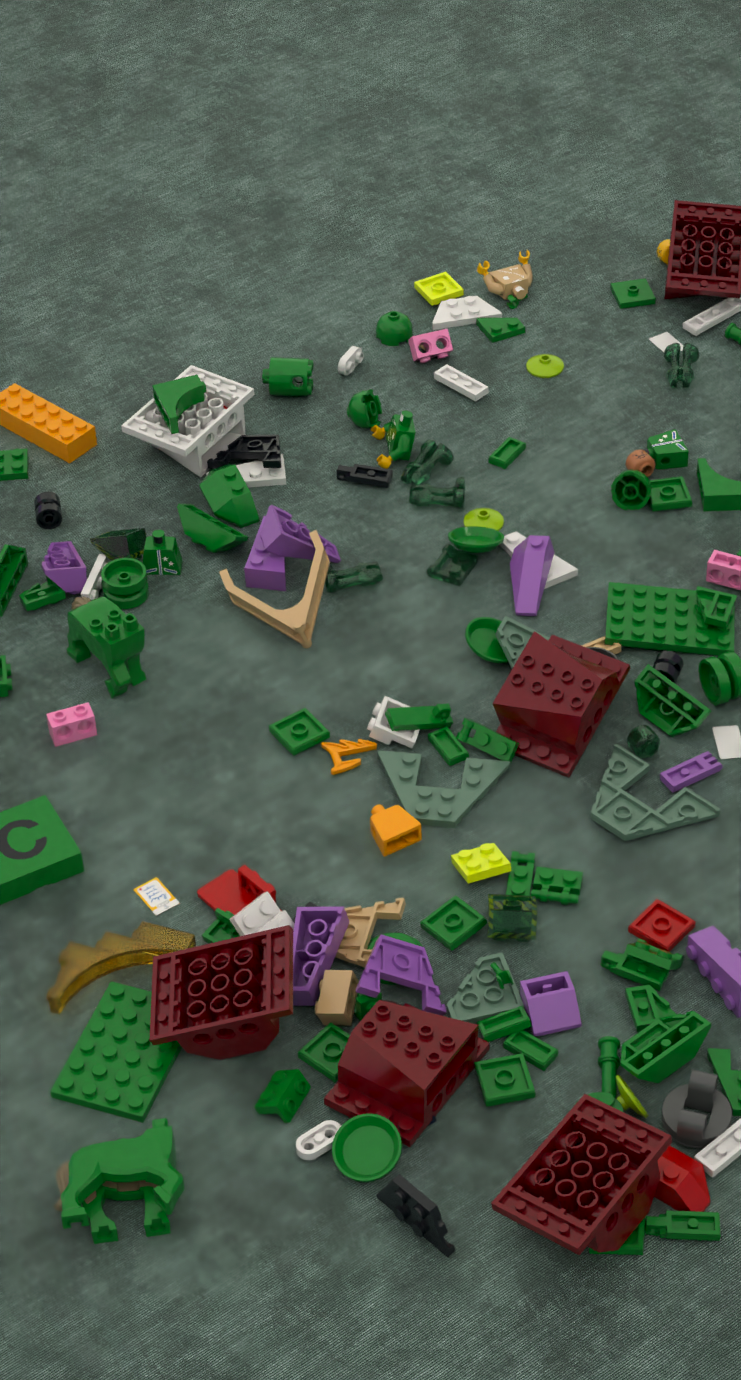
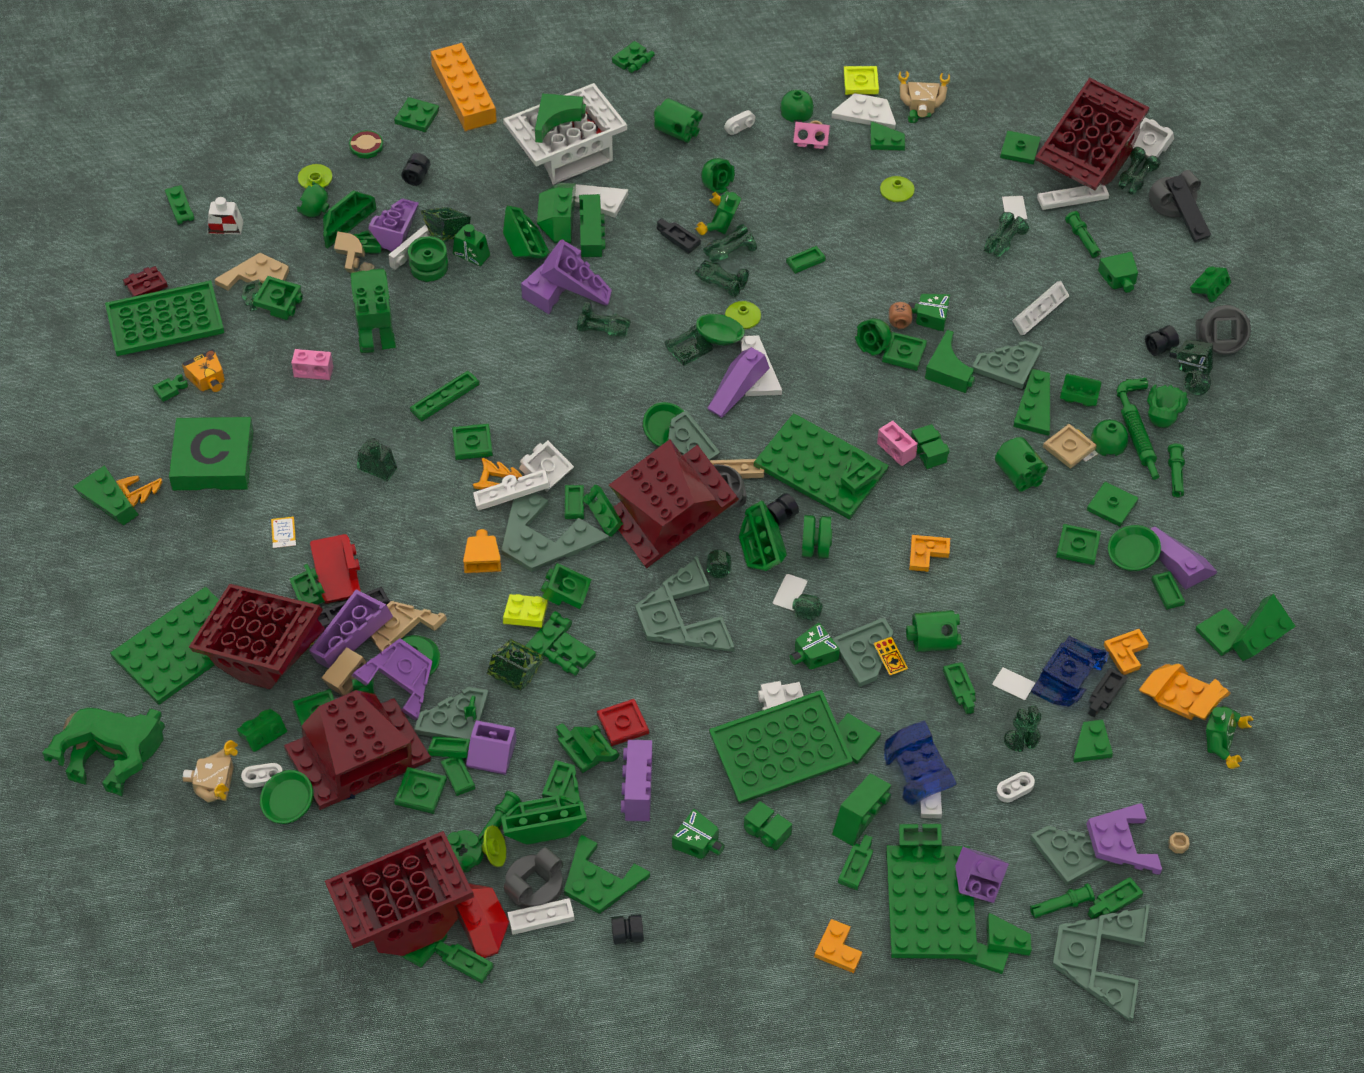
camera: 25 degrees right, 10 degrees up
(32, 599) = (350, 246): none -> tan brick
(113, 952) = (220, 564): clear yellow arch -> none
(192, 340) = (629, 57): none -> green plate
(212, 784) = (376, 459): none -> clear green torso
(235, 702) = (444, 396): none -> green tile
(246, 447) = (605, 173): black wing -> none
(260, 916) = (327, 590): white plate -> none
(265, 1162) = (213, 774): none -> tan torso
(270, 489) = (590, 226): none -> green wedge
(295, 621) = (535, 345): tan piece -> none
(378, 756) = (511, 489): none -> white hinge
(417, 1211) = (284, 864): black wing -> none
(419, 717) = (565, 469): green hinge -> none
(453, 923) = (471, 650): green plate -> none
(461, 382) = (814, 178): white plate -> none
(504, 823) = (565, 586): none -> green plate
(690, 771) = (738, 604): medium lavender hinge -> none

